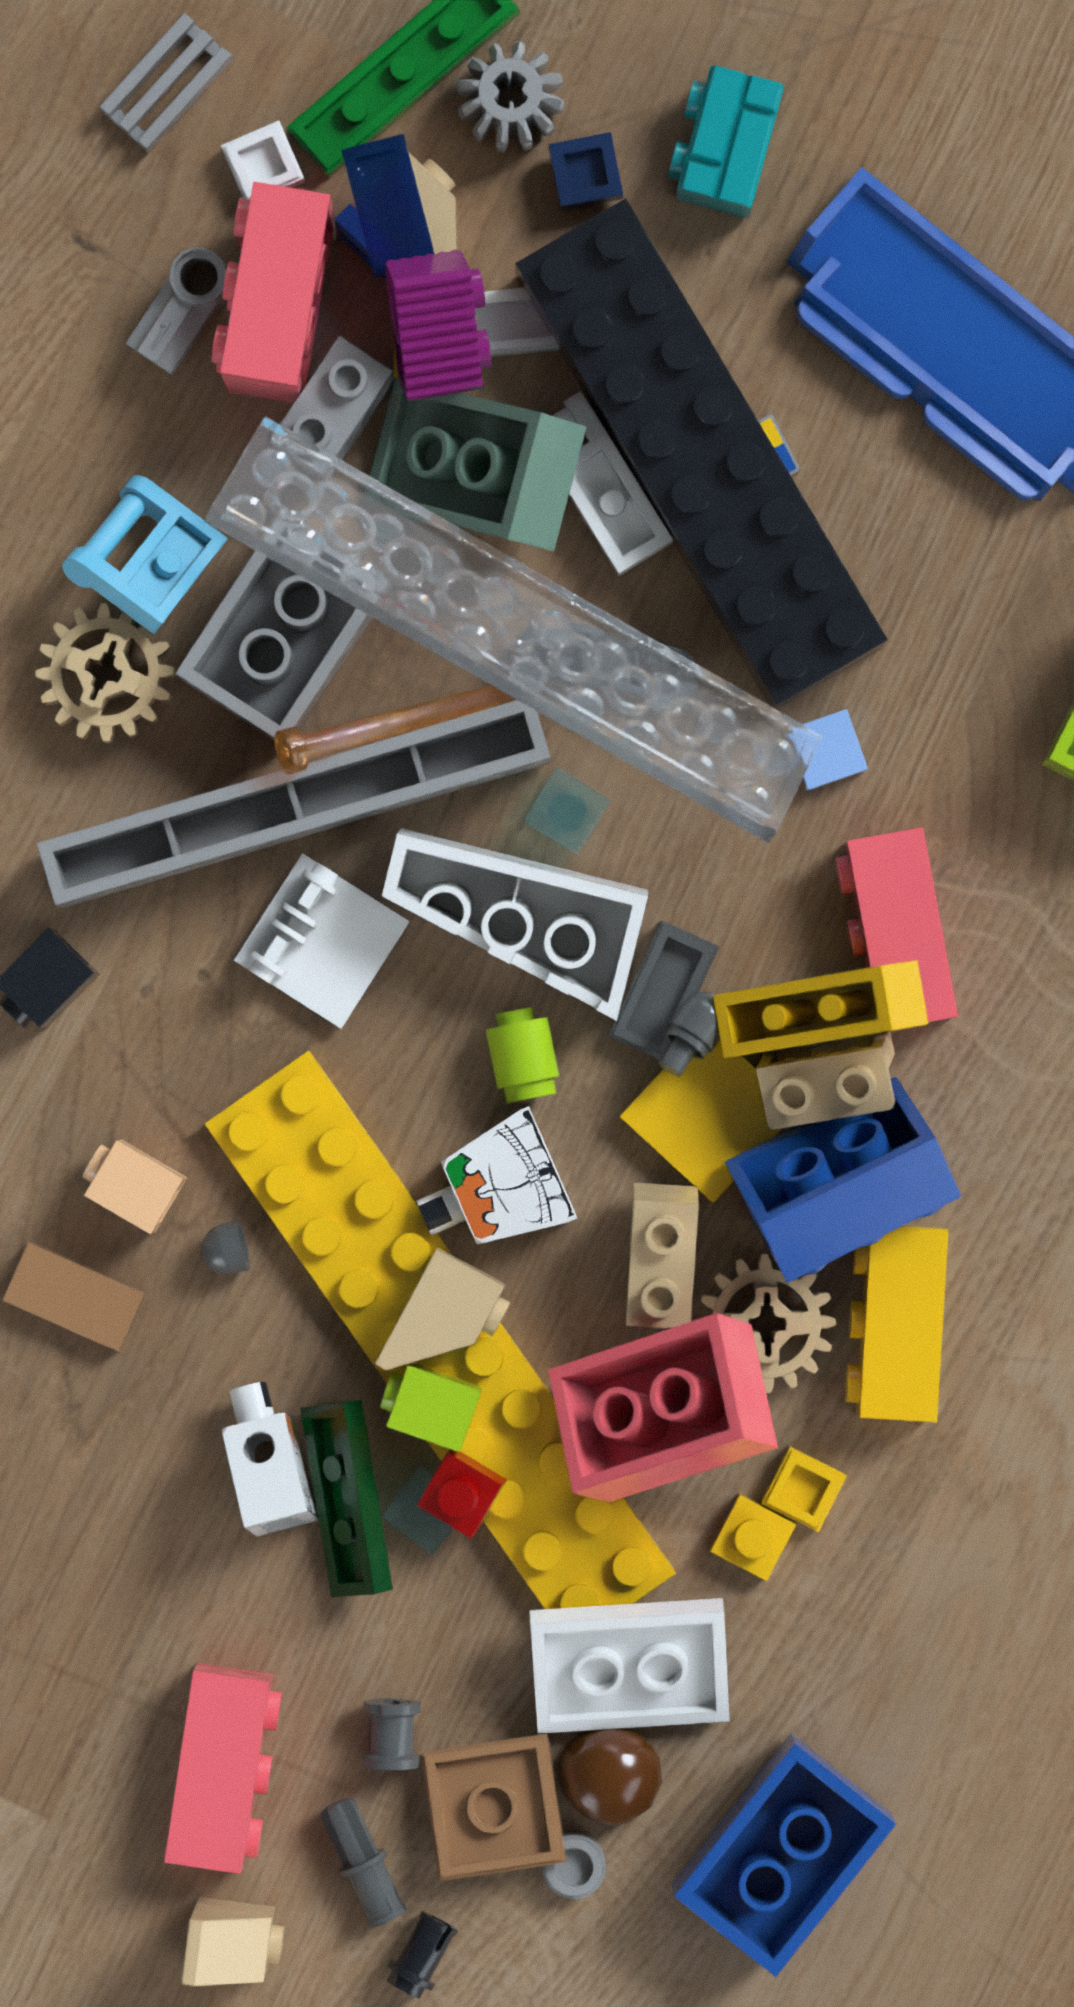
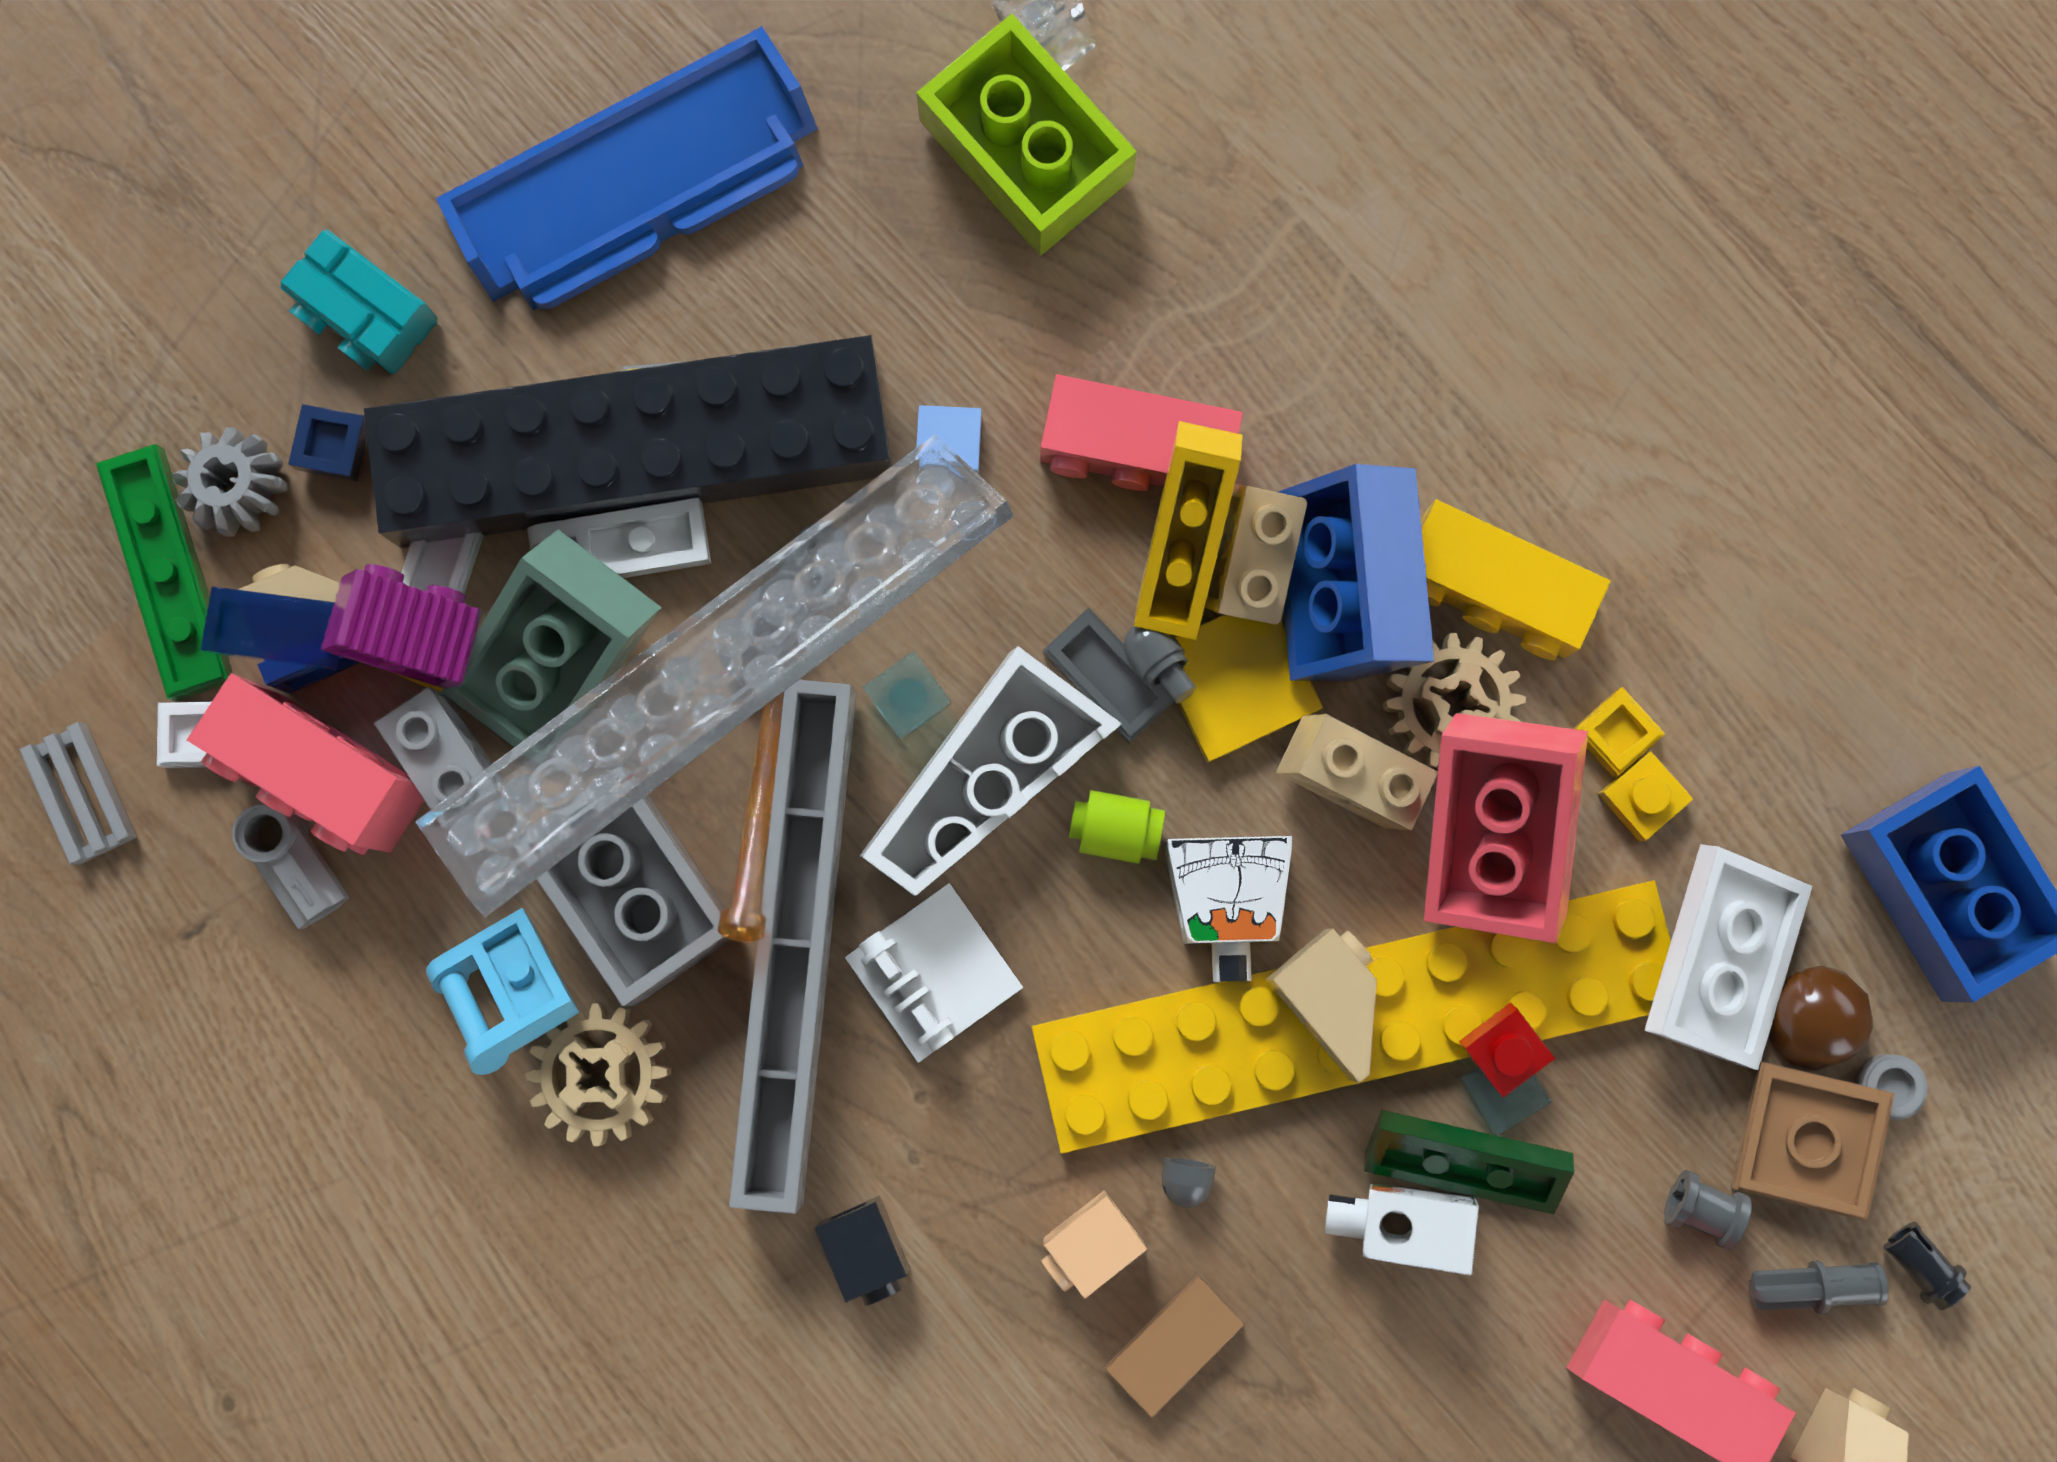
camera: 70 degrees left, 5 degrees down
(430, 1405) = (1417, 1045): lime brick -> none

